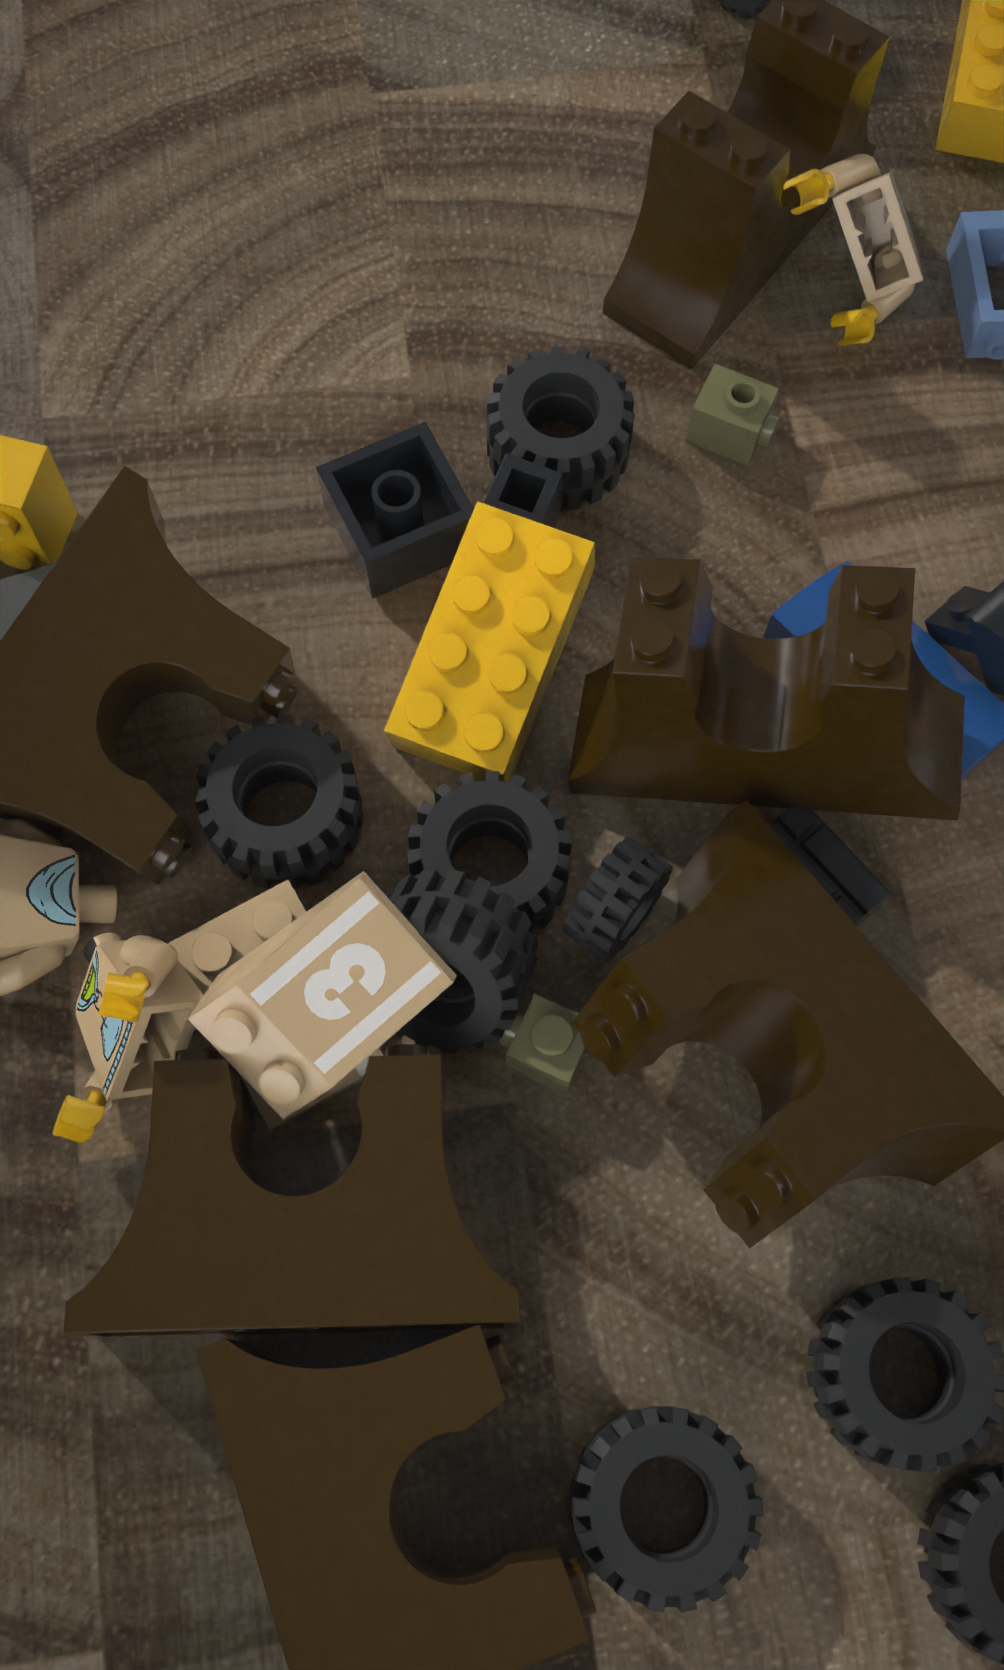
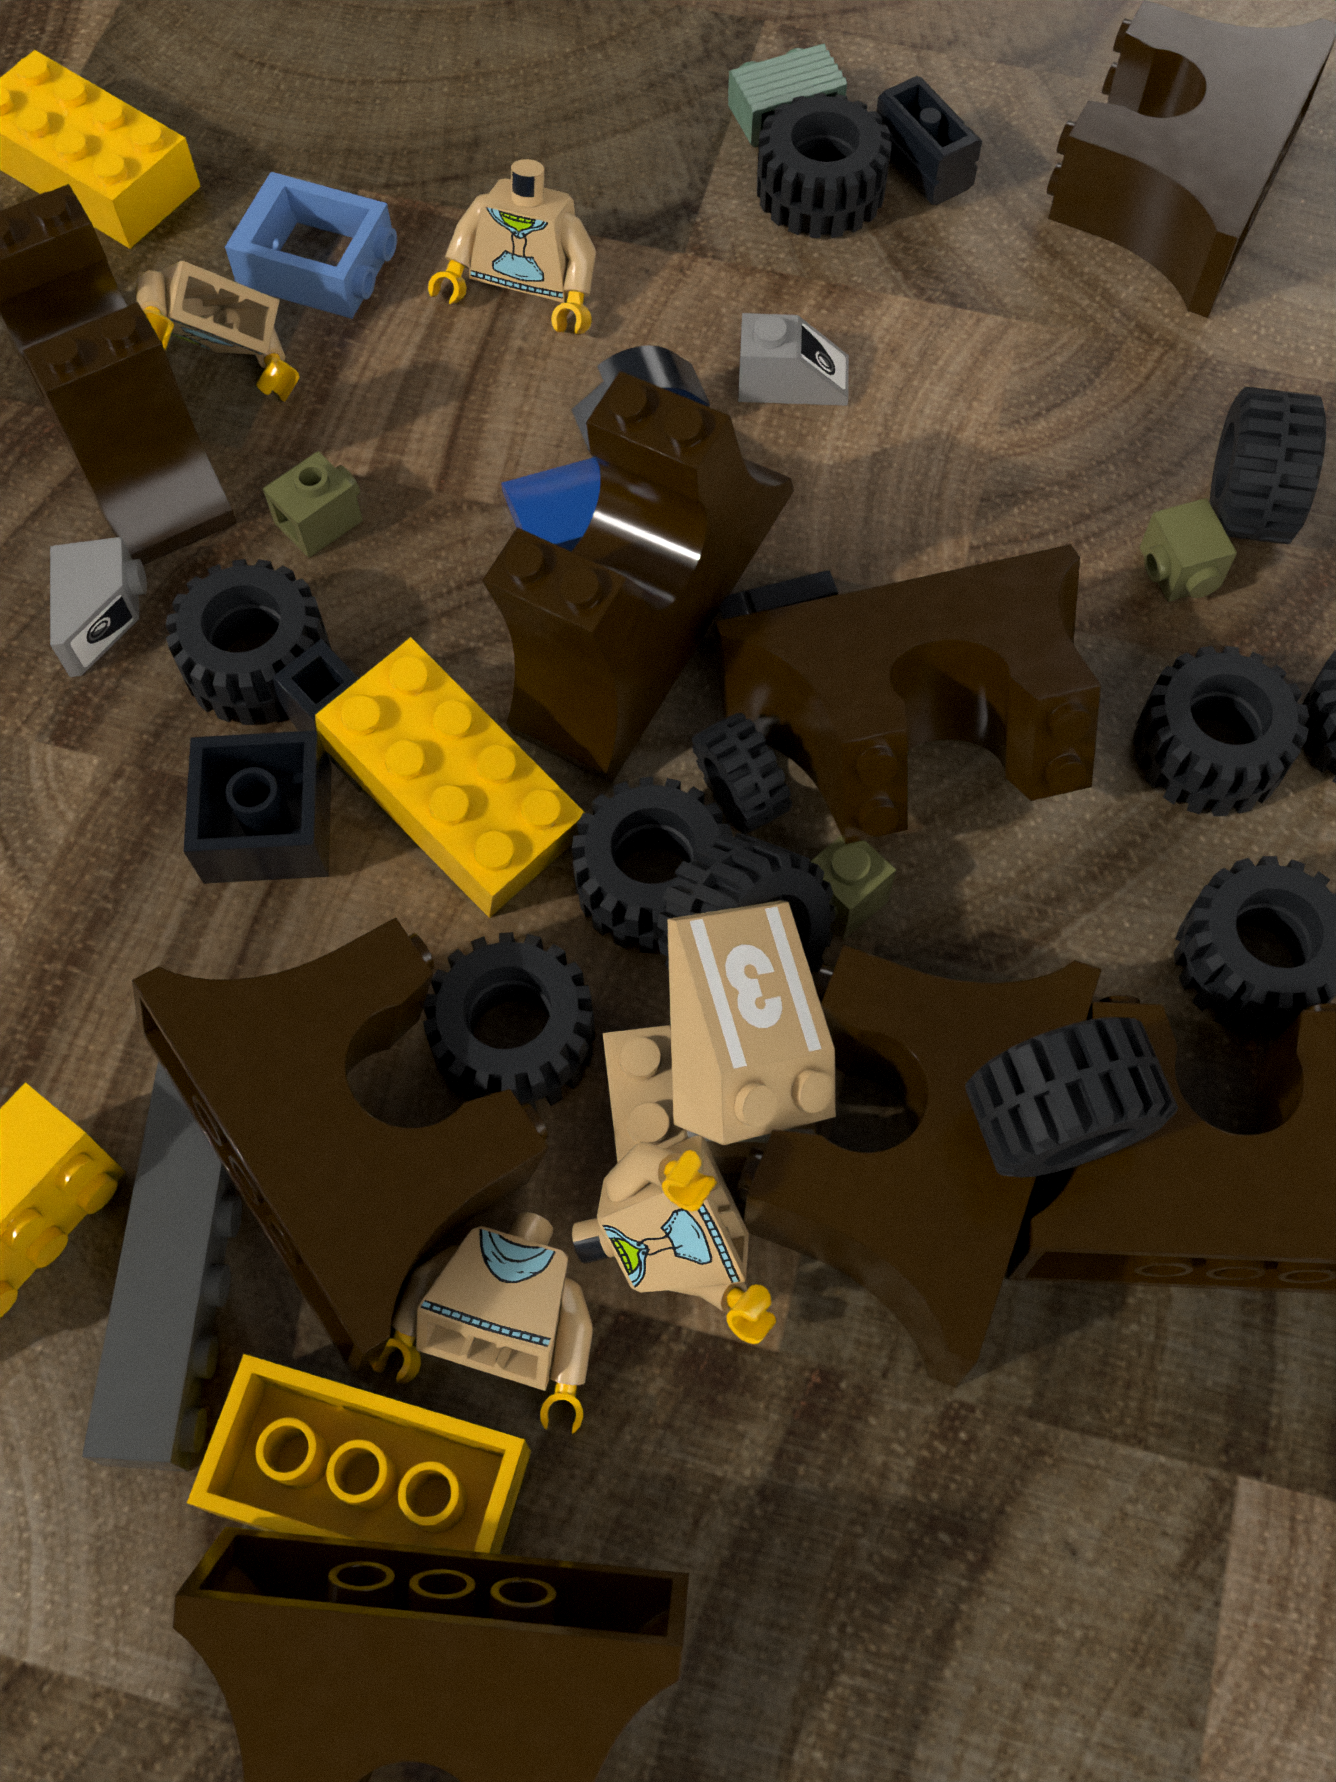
camera: 65 degrees left, 5 degrees down
(317, 1326) = (1070, 1096): none -> black tyre
(543, 293) = (92, 599): none -> light grey slope

